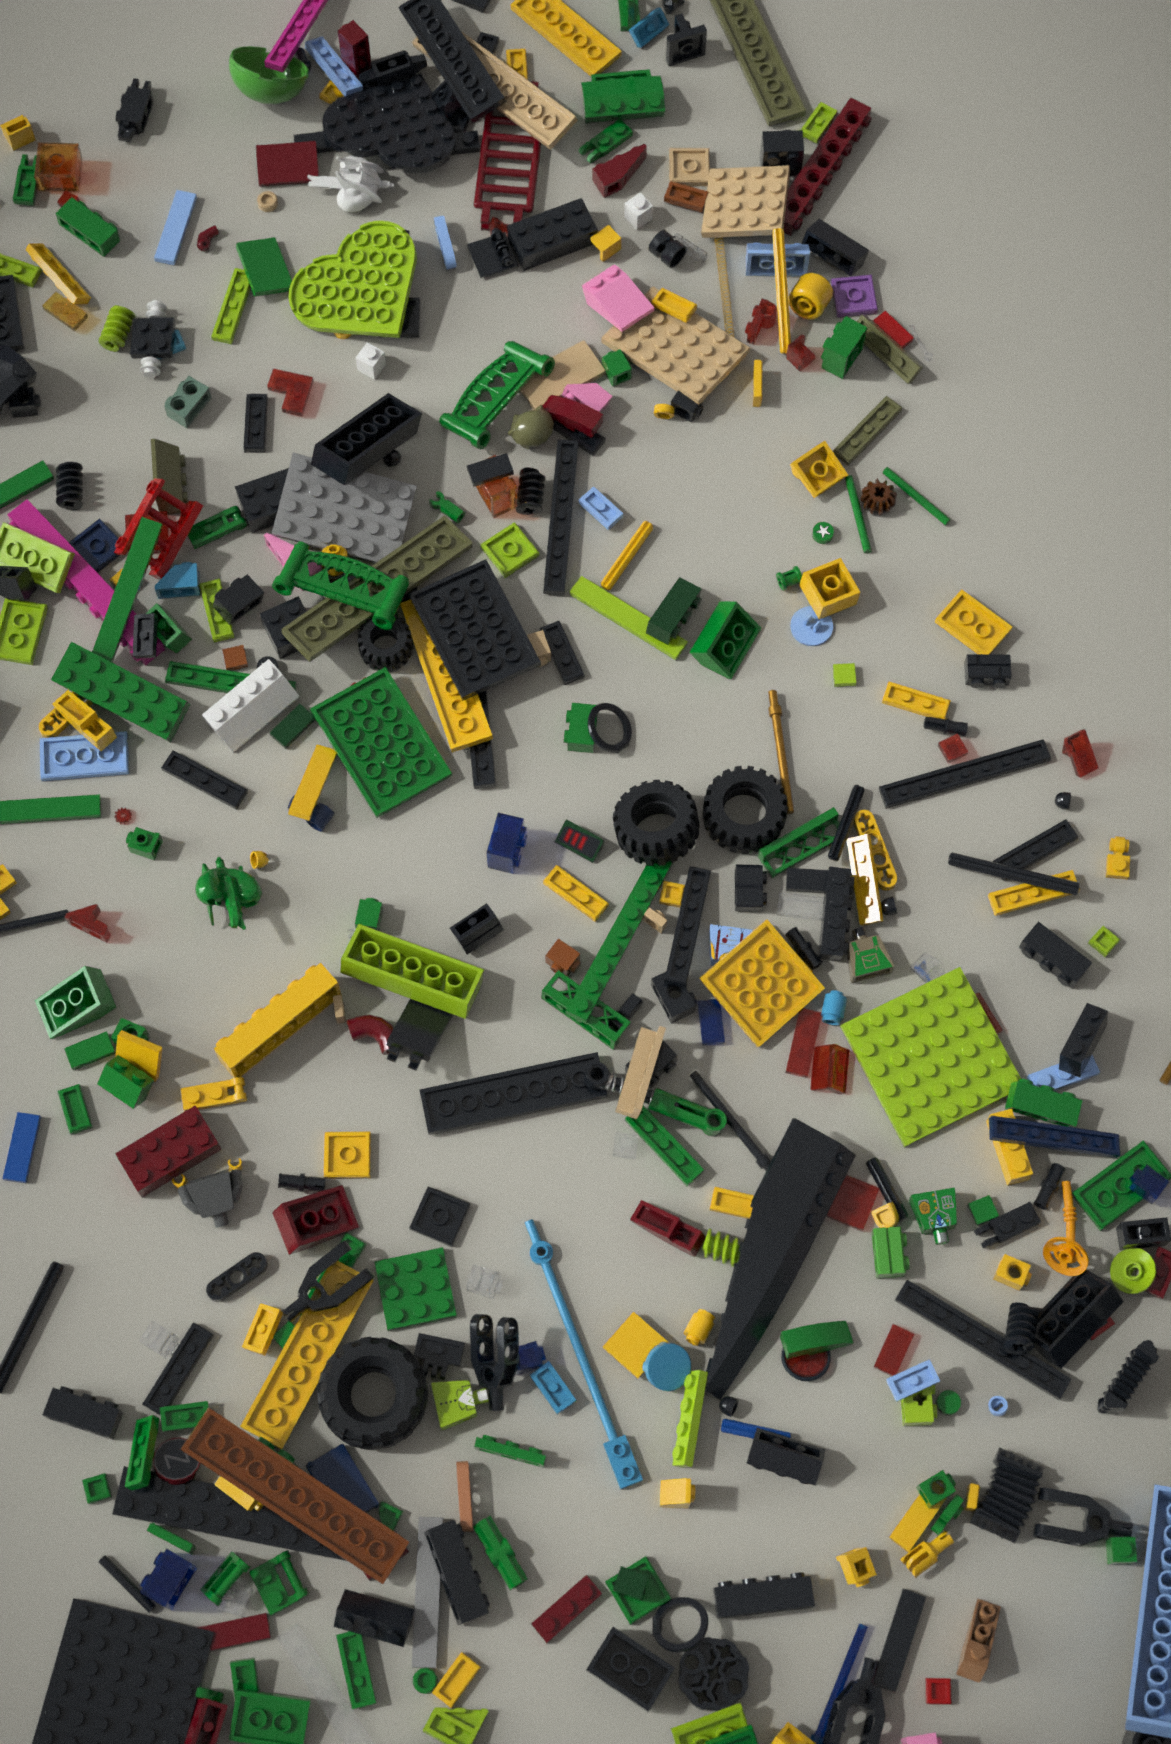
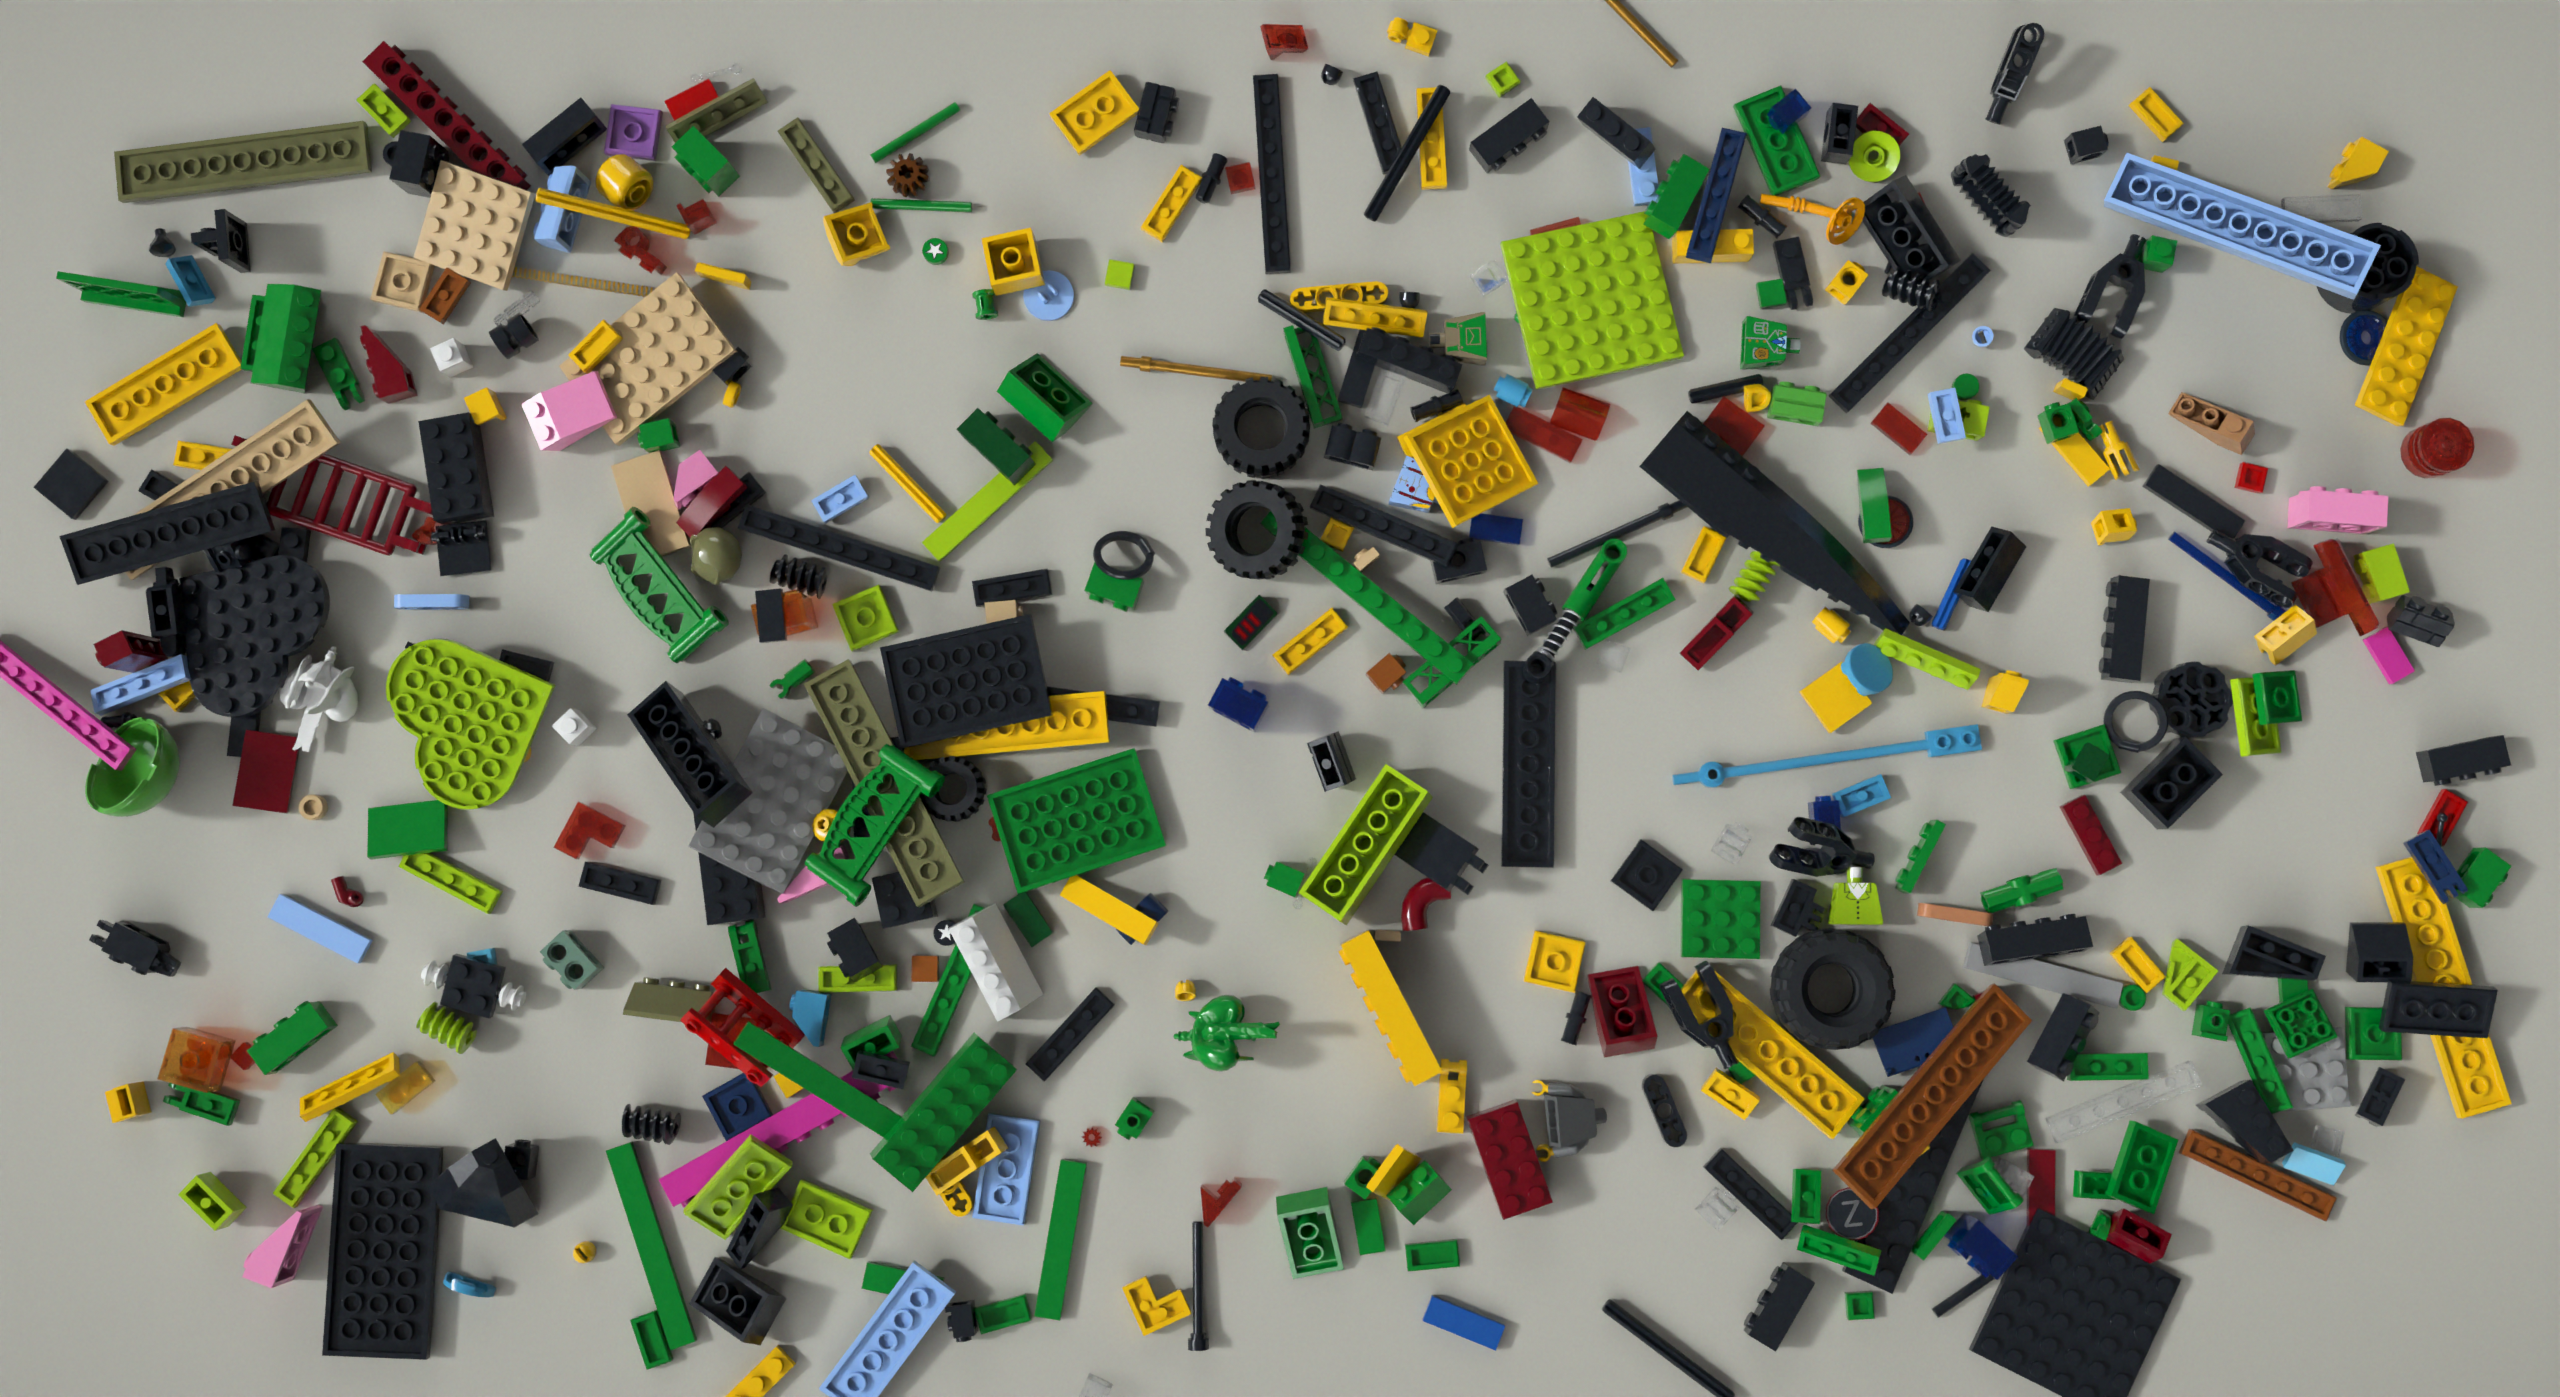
camera: 70 degrees left, 15 degrees up
(640, 1072) = (1548, 617): tan fence -> none

